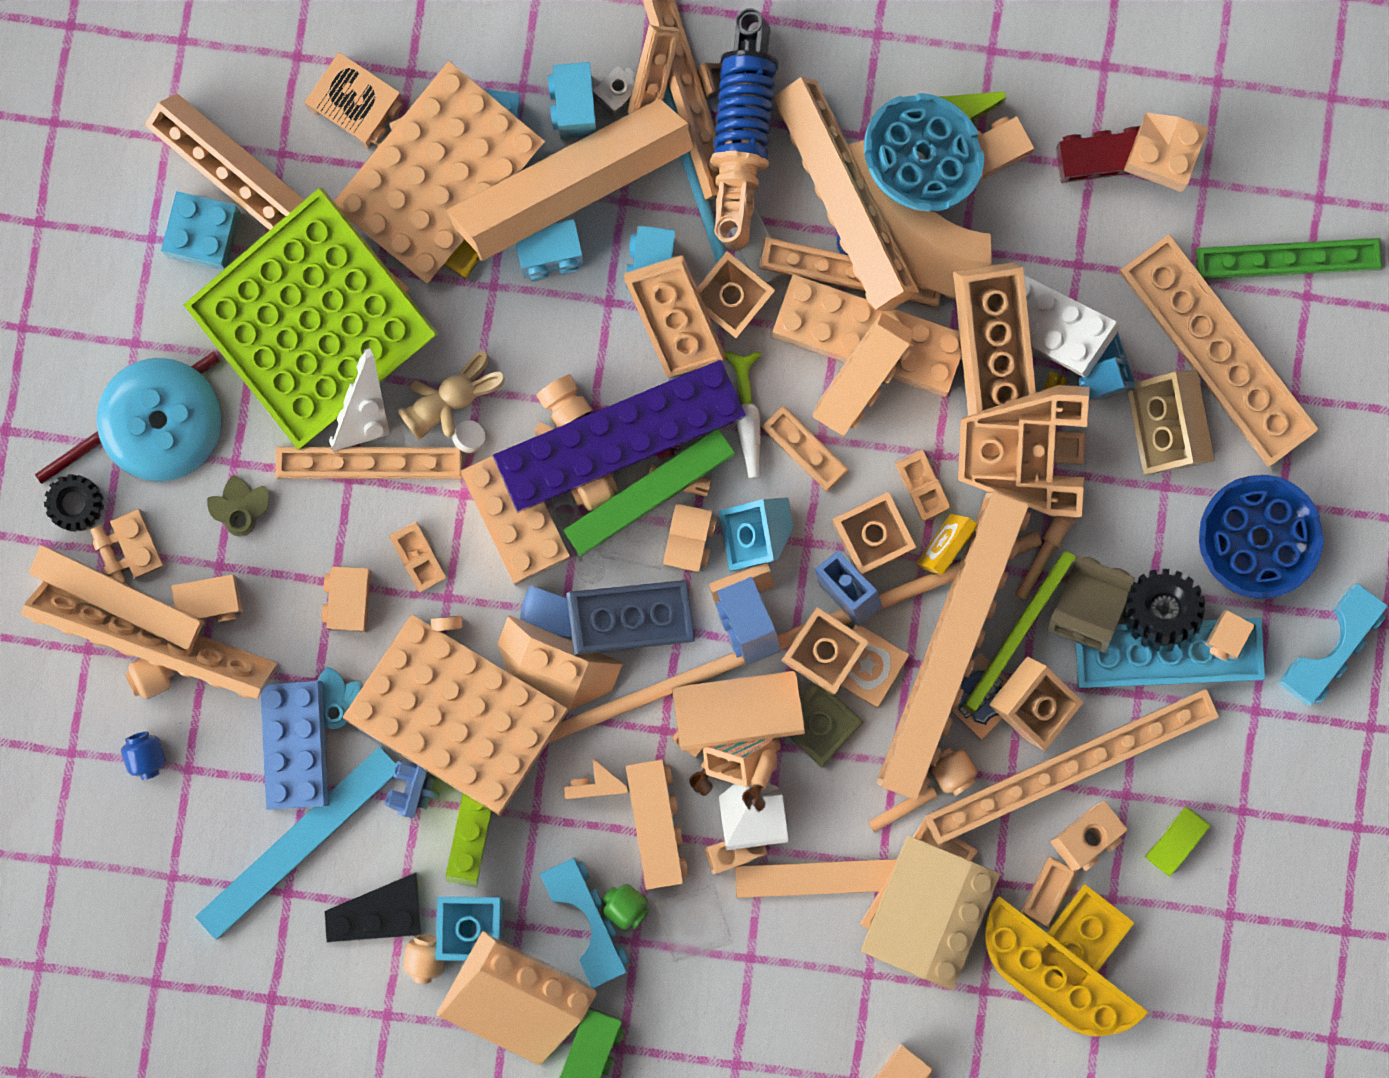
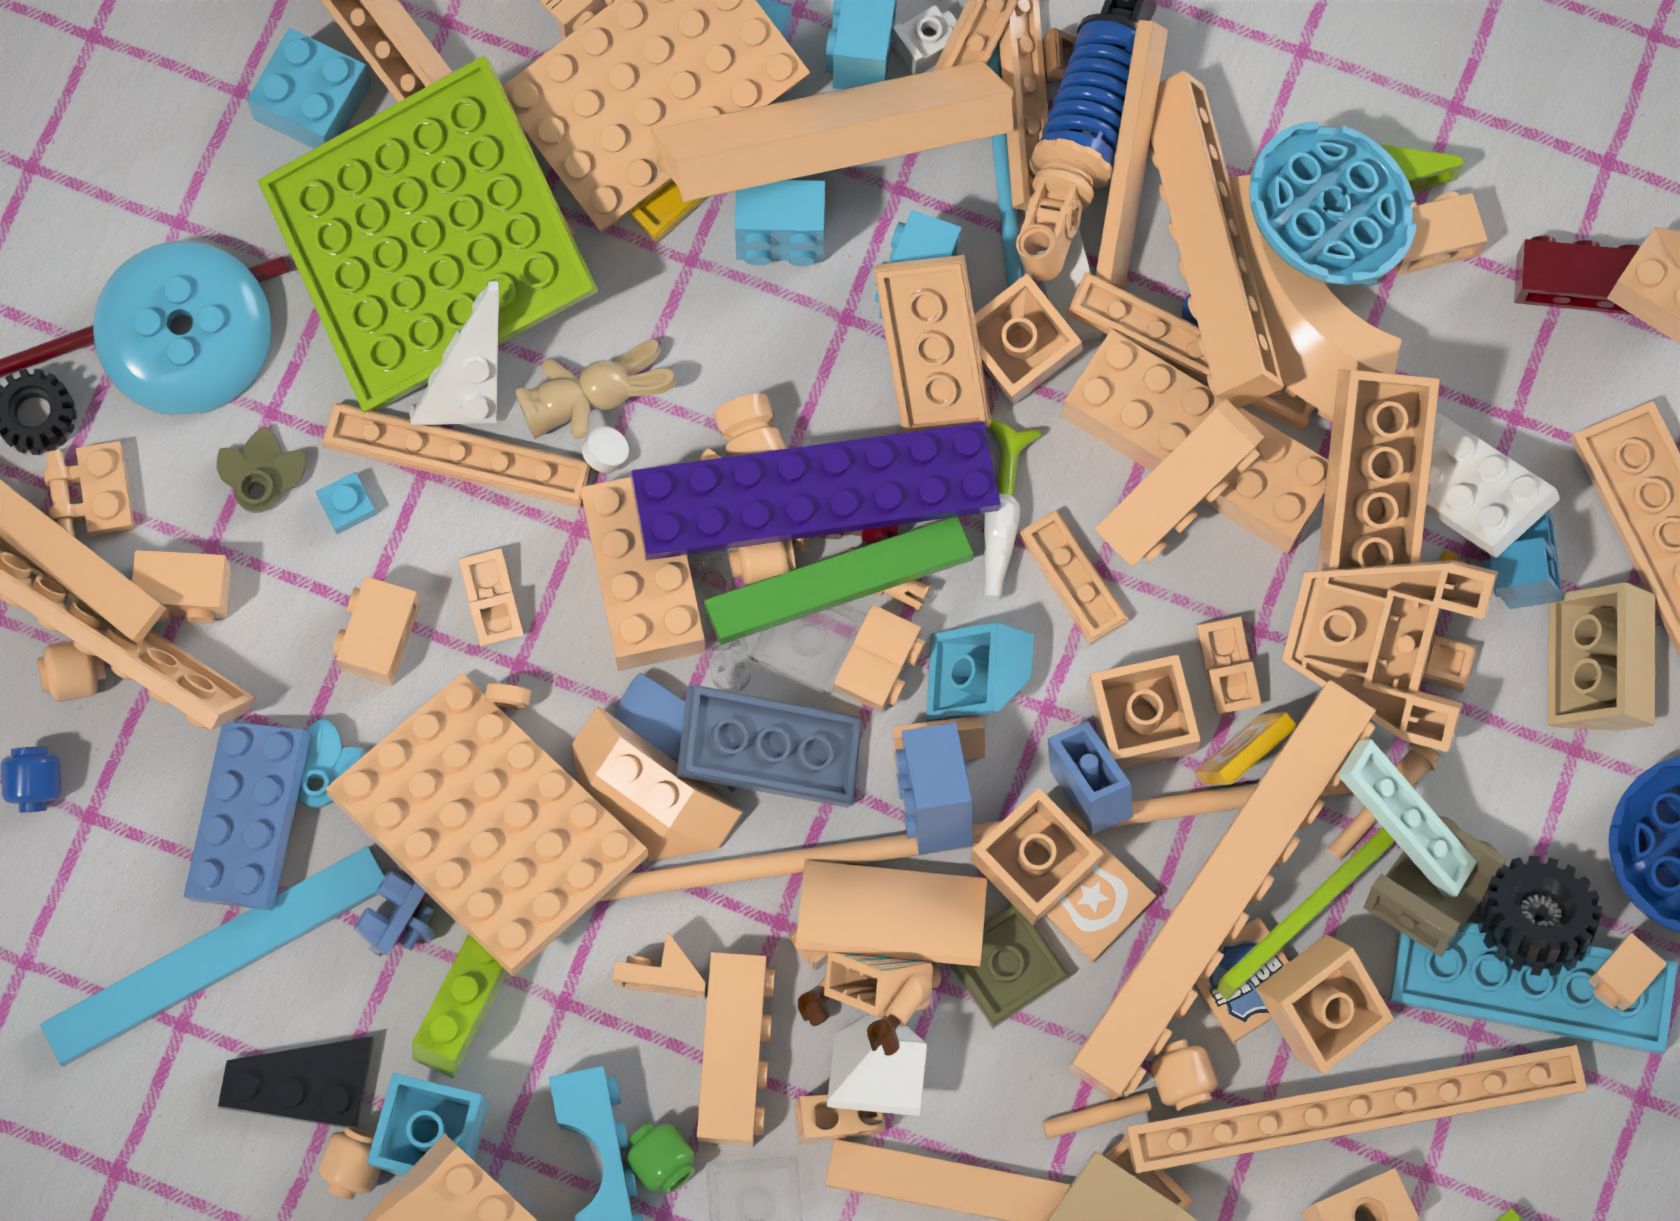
camera: 15 degrees right, 10 degrees down
(302, 514) = (346, 503): none -> medium azure plate
(778, 145) = (1131, 153): none -> light nougat tile
(1064, 569) = (1407, 818): none -> light aqua plate

